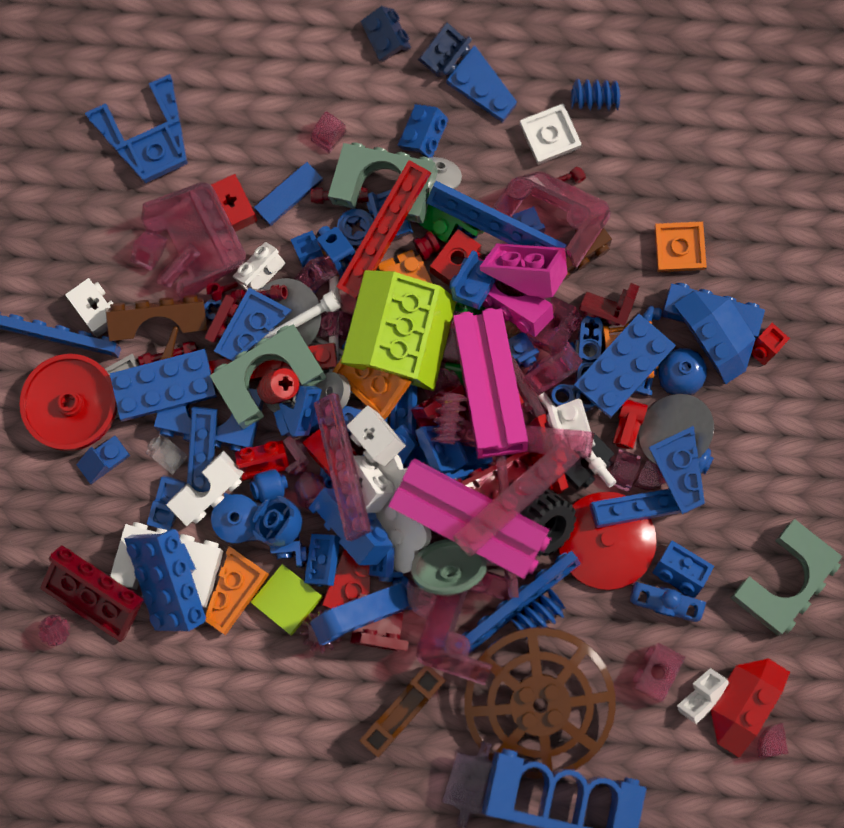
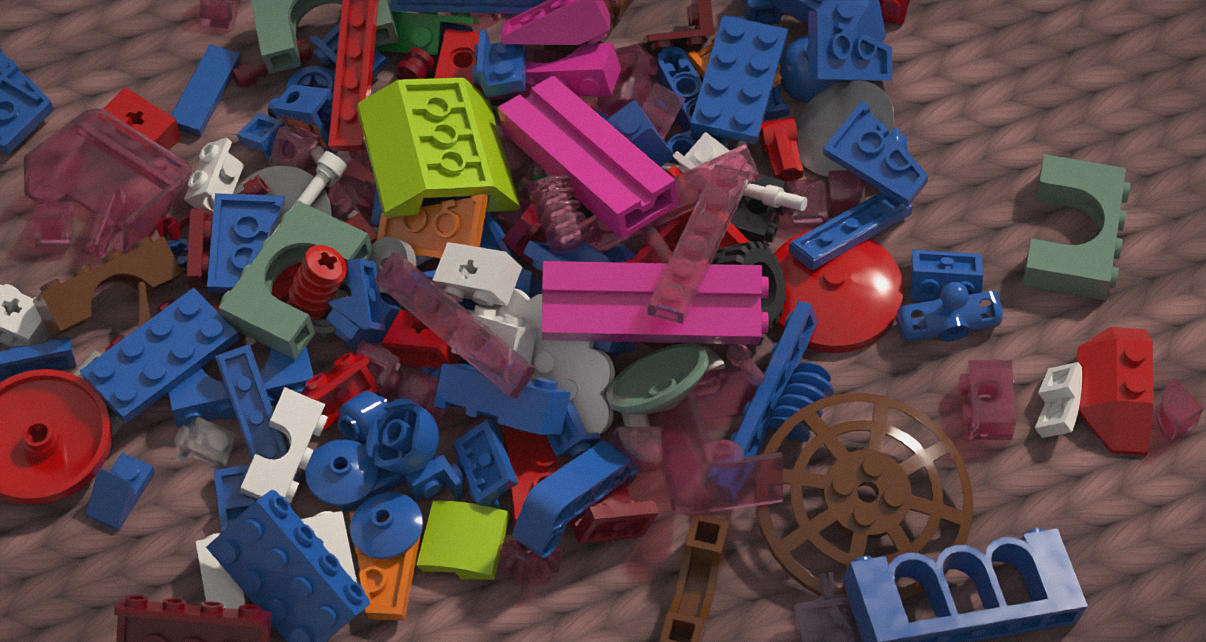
camera: 30 degrees left, 20 degrees down
(252, 576) = (390, 537): none -> blue dish
(535, 383) = (639, 130): none -> blue slope
(704, 381) = (843, 53): none -> blue wing

